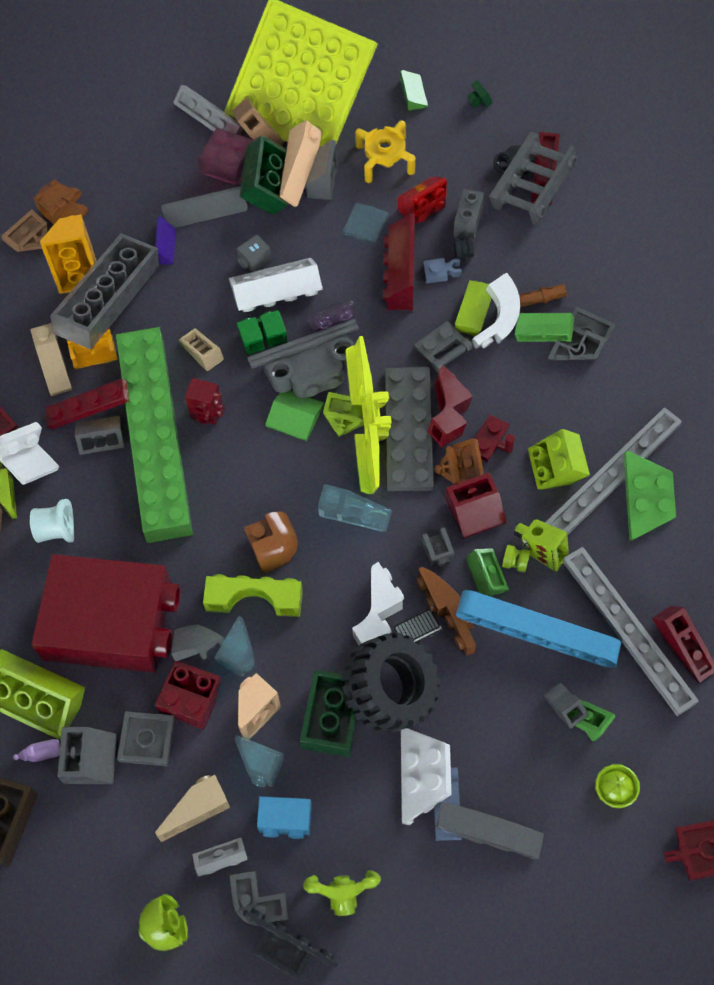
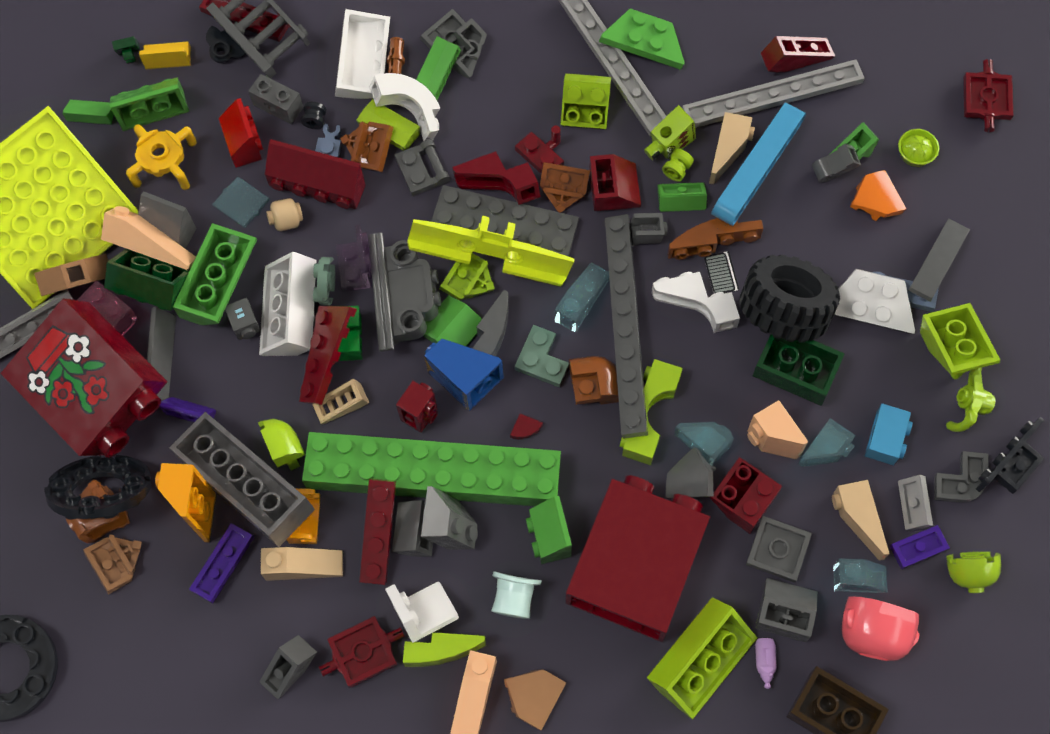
camera: 75 degrees left, 5 degrees up
(33, 303) = (221, 563): none -> dark purple plate
(49, 191) = (63, 482): none -> black plate
(80, 839) = (879, 628): none -> coral piece
(106, 452) = (447, 522): none -> dark grey slope
(118, 538) = (550, 531): none -> bright green slope
(134, 819) = (859, 576): none -> clear light blue slope
(146, 309) = (282, 442): none -> lime brick
(161, 156) = (85, 379): none -> dark red brick
(176, 870) = (919, 547): none -> dark purple plate
(214, 496) = (525, 427): none -> dark red tile
(243, 427) = (463, 371): none -> blue slope
(250, 315) = (324, 353): none -> dark red wing
(283, 217) = (213, 275): none -> bright green slope
(283, 487) = (536, 361): none -> sand green plate
(297, 444) = (493, 326): none -> dark grey slope
(302, 299) = (325, 280): none -> sand green plate
(329, 550) = (626, 327): none -> dark grey plate
(359, 254) = (284, 214): none -> tan head
(396, 860) = (958, 339): none -> lime slope
(431, 125) = (149, 104): none -> bright green slope
(447, 297) = (369, 145): none -> dark orange slope
(485, 125) = (166, 55): none -> yellow panel
(542, 265) = (361, 53): none -> white slope
(546, 757) = (878, 196): none -> orange slope
(558, 601) = (732, 142): none -> tan slope

